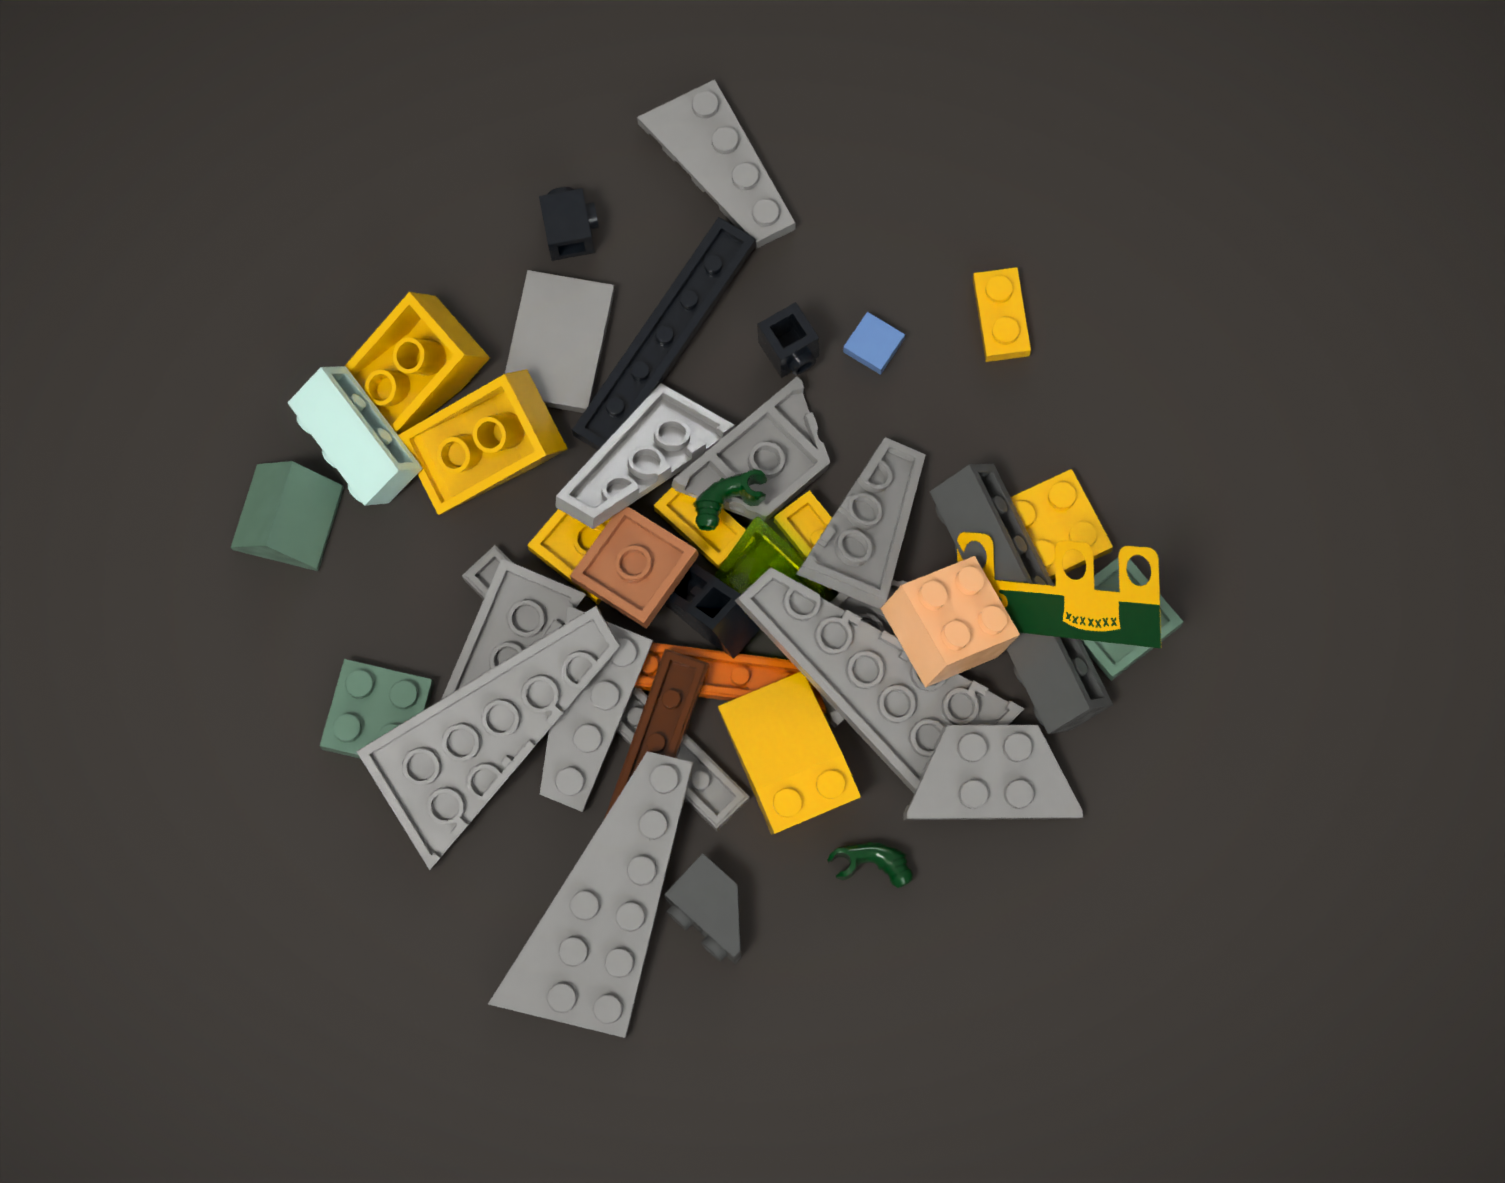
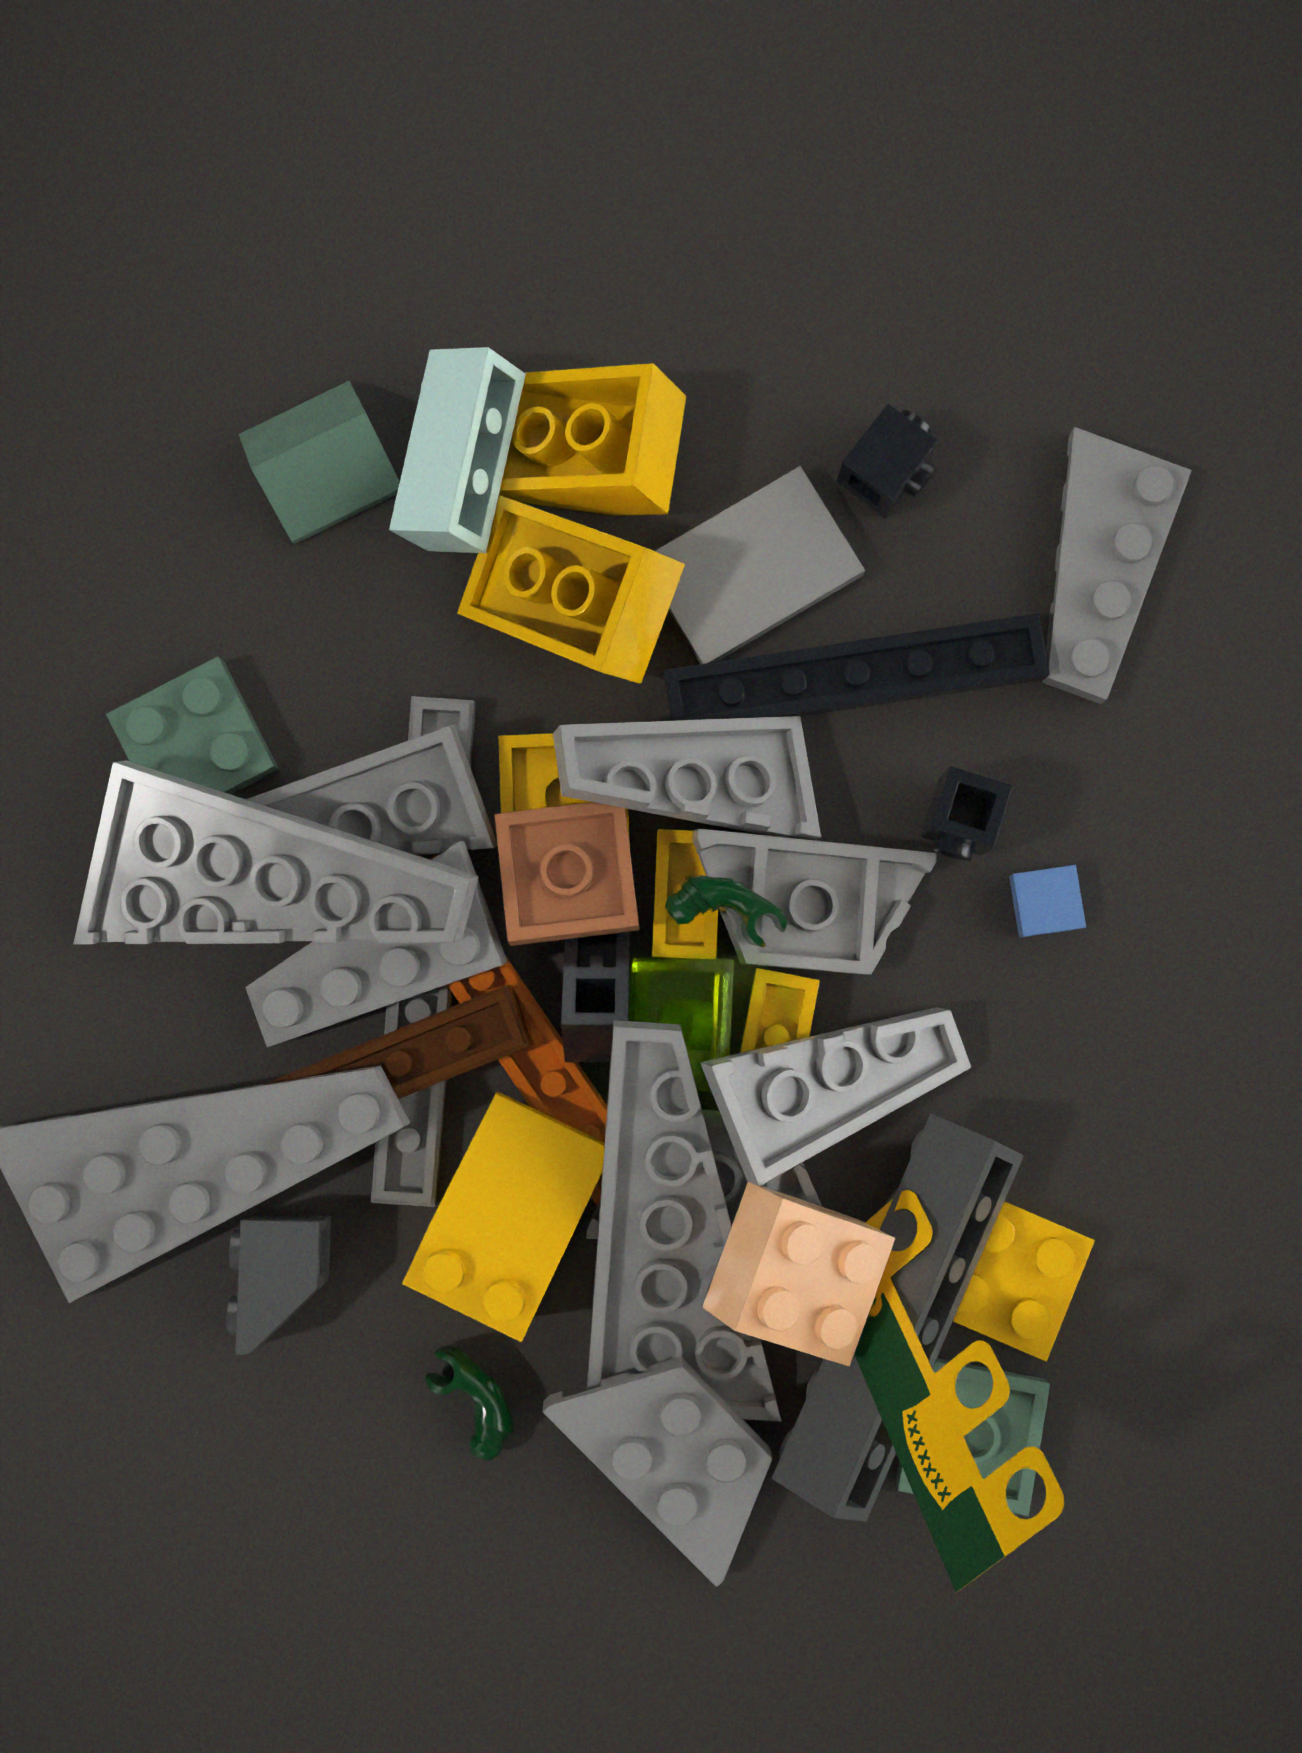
camera: 50 degrees right, 10 degrees up
(1001, 314) = (1203, 1010): yellow plate -> none

